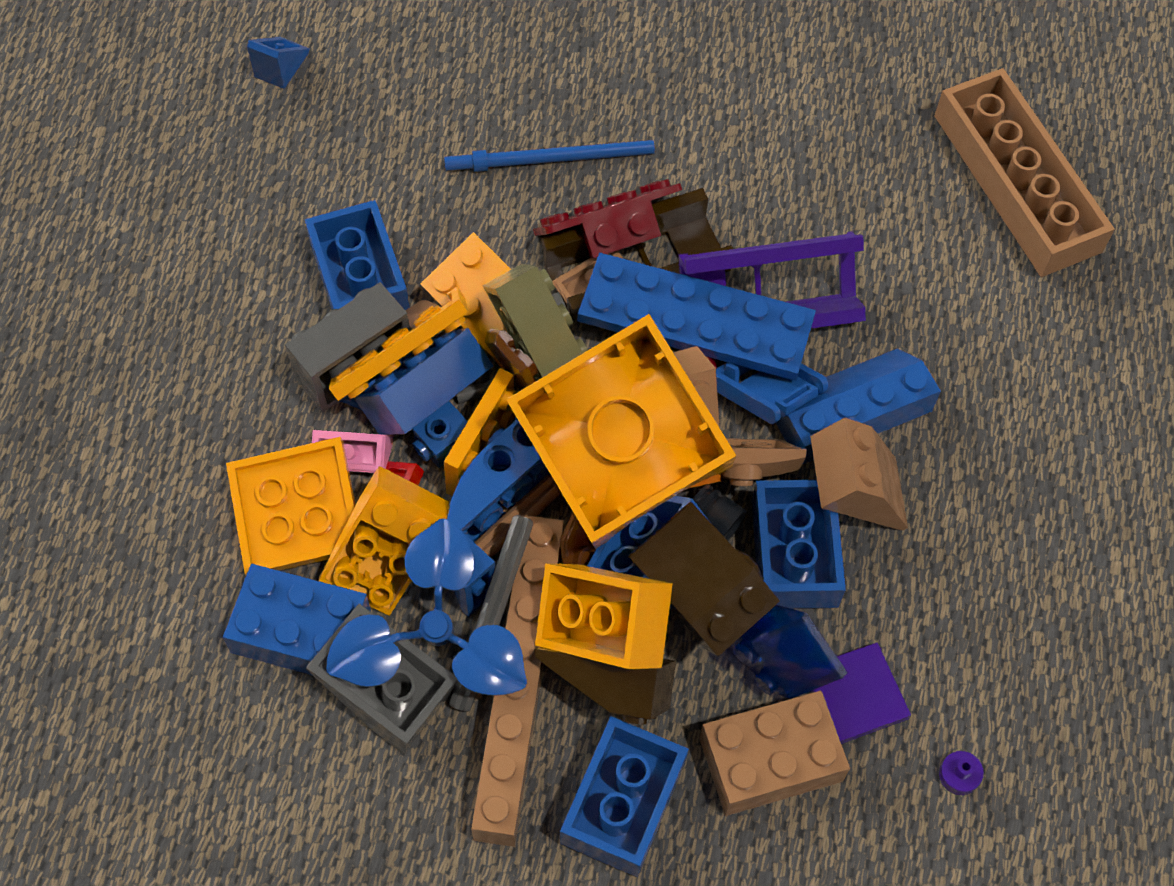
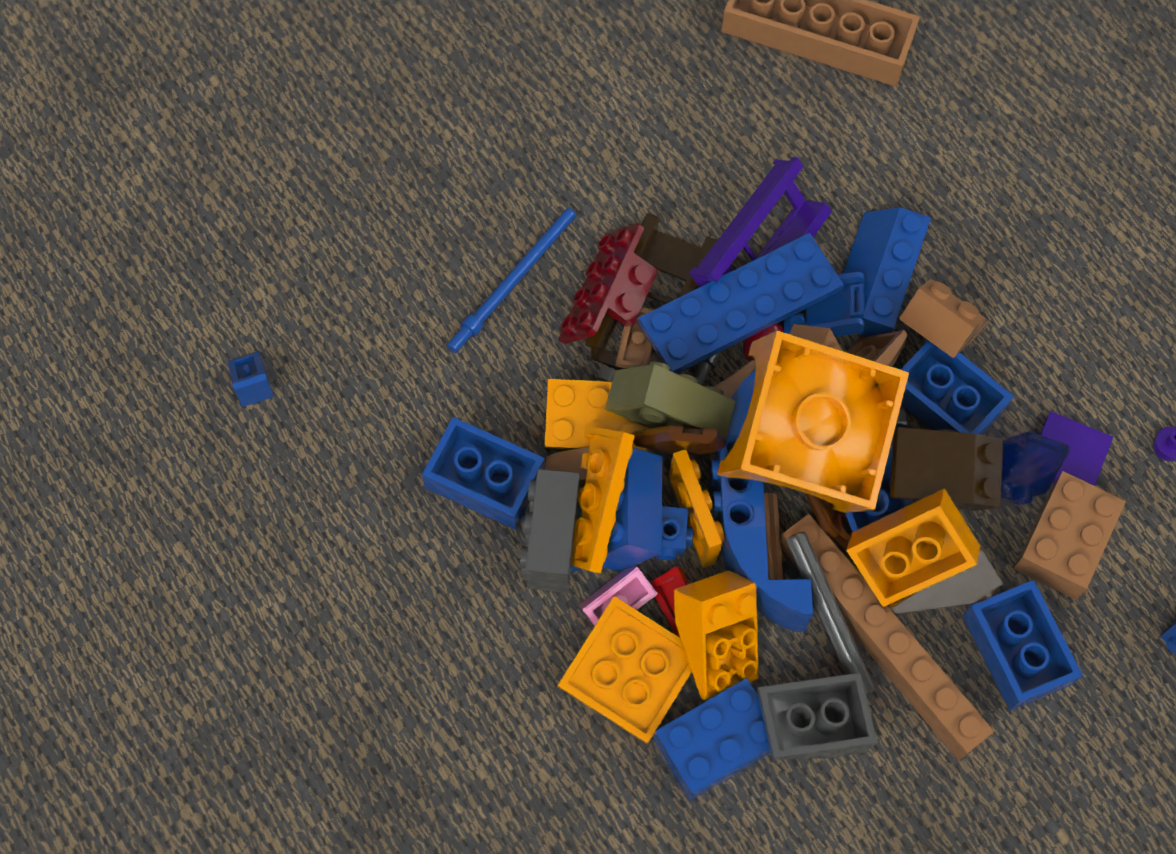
camera: 45 degrees left, 5 degrees up
(437, 559) = (801, 709): blue plant -> none

